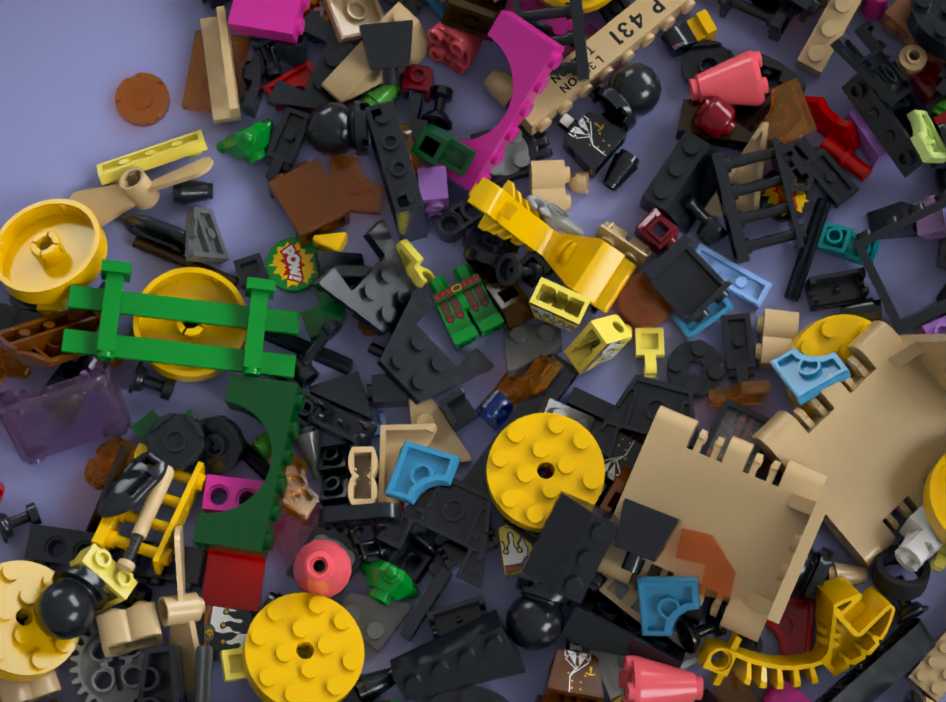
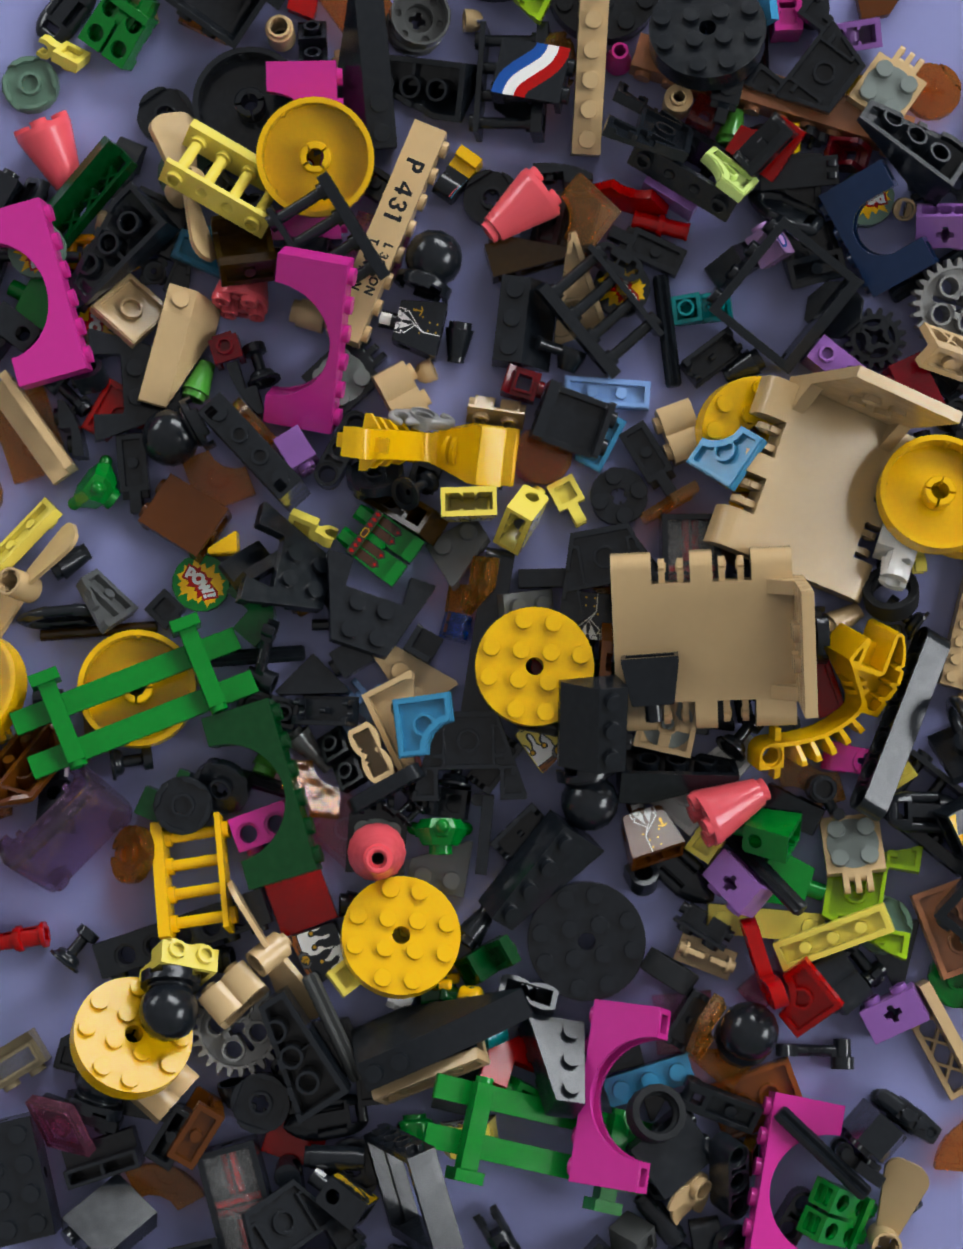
camera: 30 degrees left, 10 degrees up
(115, 473) = (145, 844): dark brown bar -> none
(133, 484) = (166, 866): black piece -> none
(144, 521) = (193, 874): tan piece -> none
(387, 47) = (184, 335): black torso -> none
(442, 147) = (284, 408): dark green brick -> none
(664, 600) = (698, 728): dark azure tile -> none
(715, 117) = (523, 250): dark red head -> none
(718, 571) = (734, 681): clear orange tile -> none

